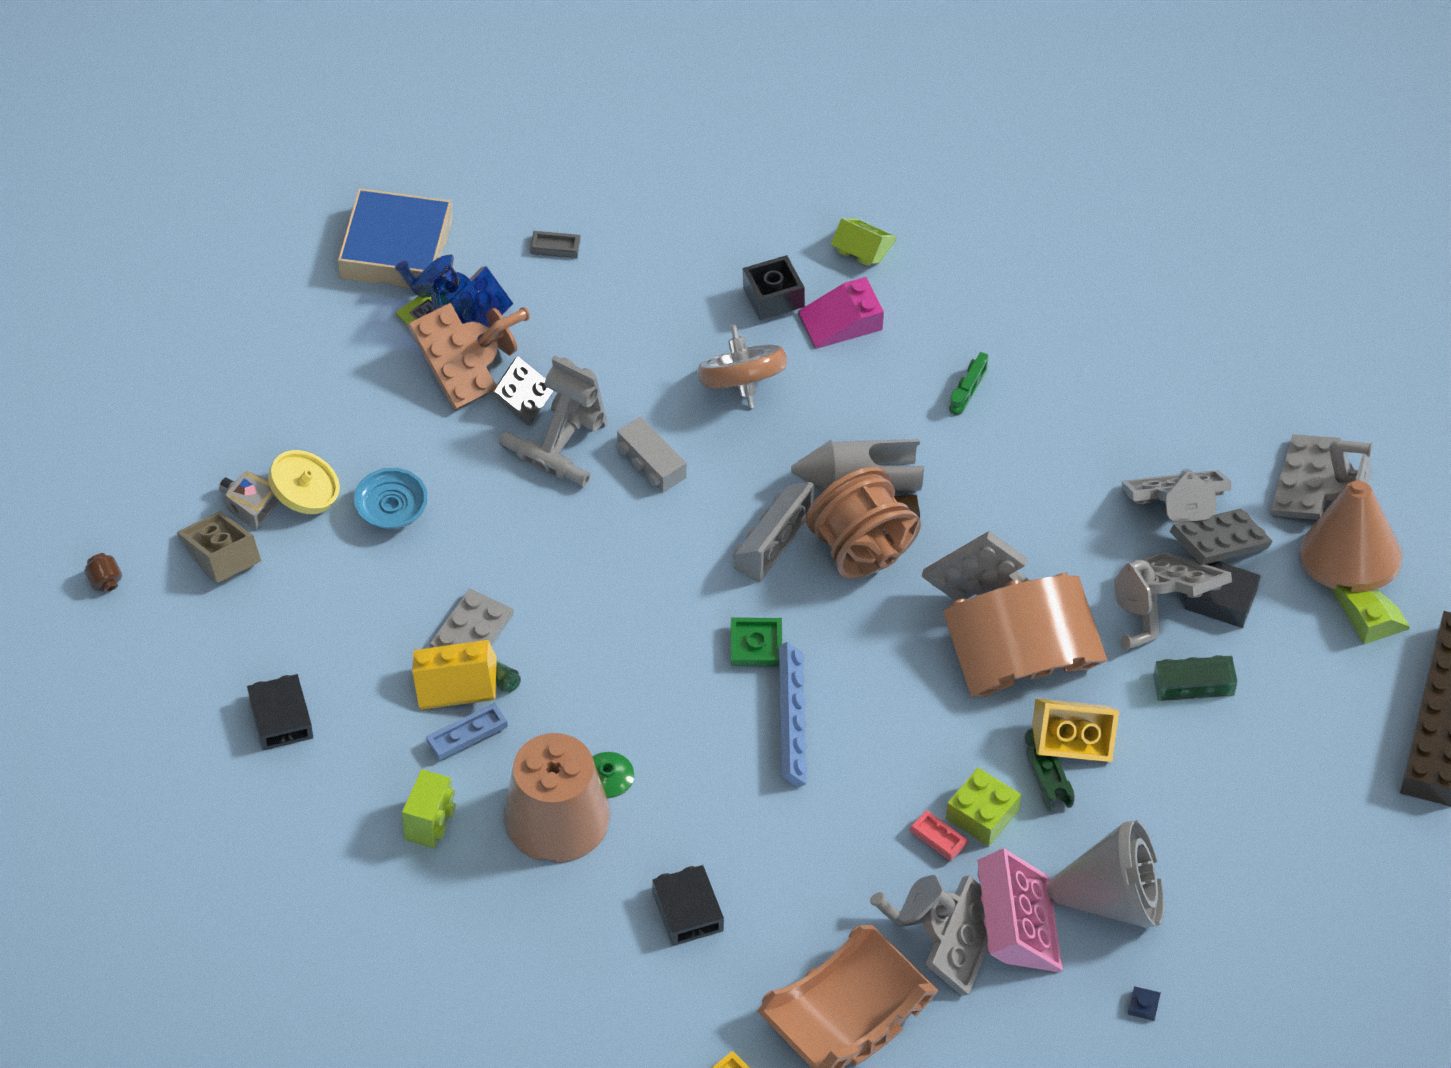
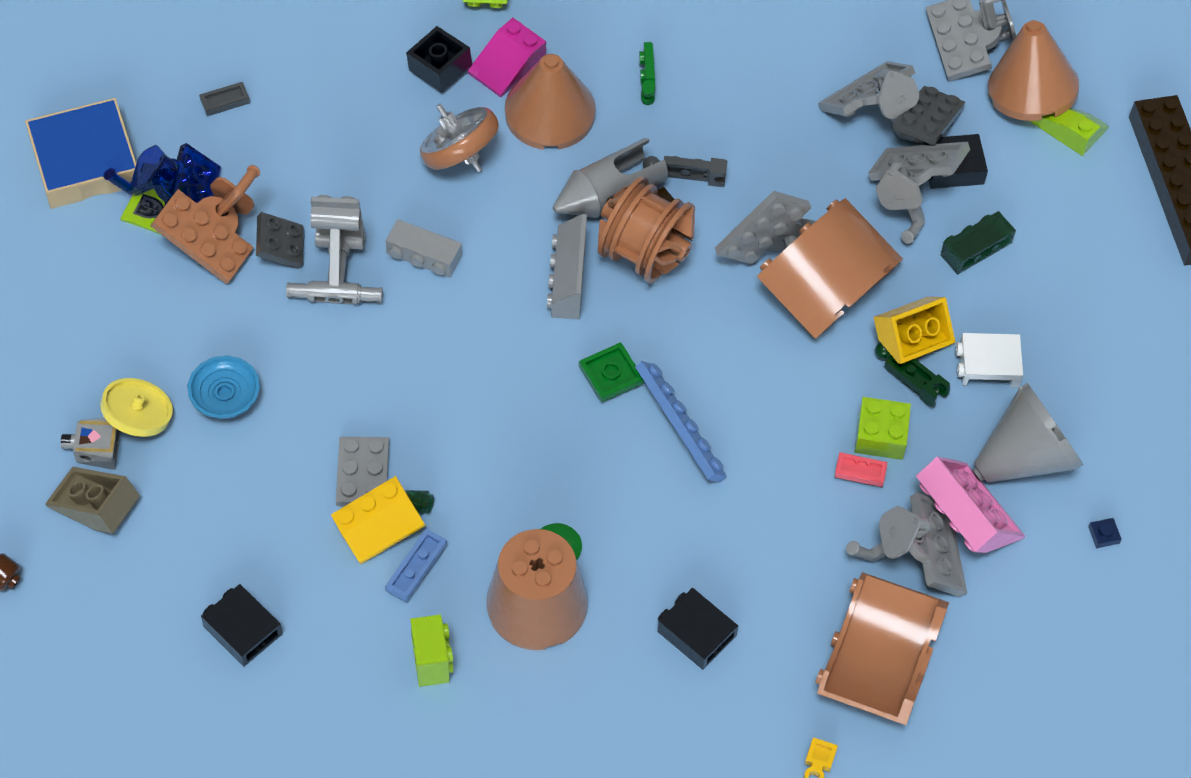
camera: 30 degrees left, 5 degrees up
(854, 374) = (550, 106): none -> nougat cone
(956, 491) = (693, 169): none -> dark grey plate
(1134, 789) = (990, 358): none -> white panel

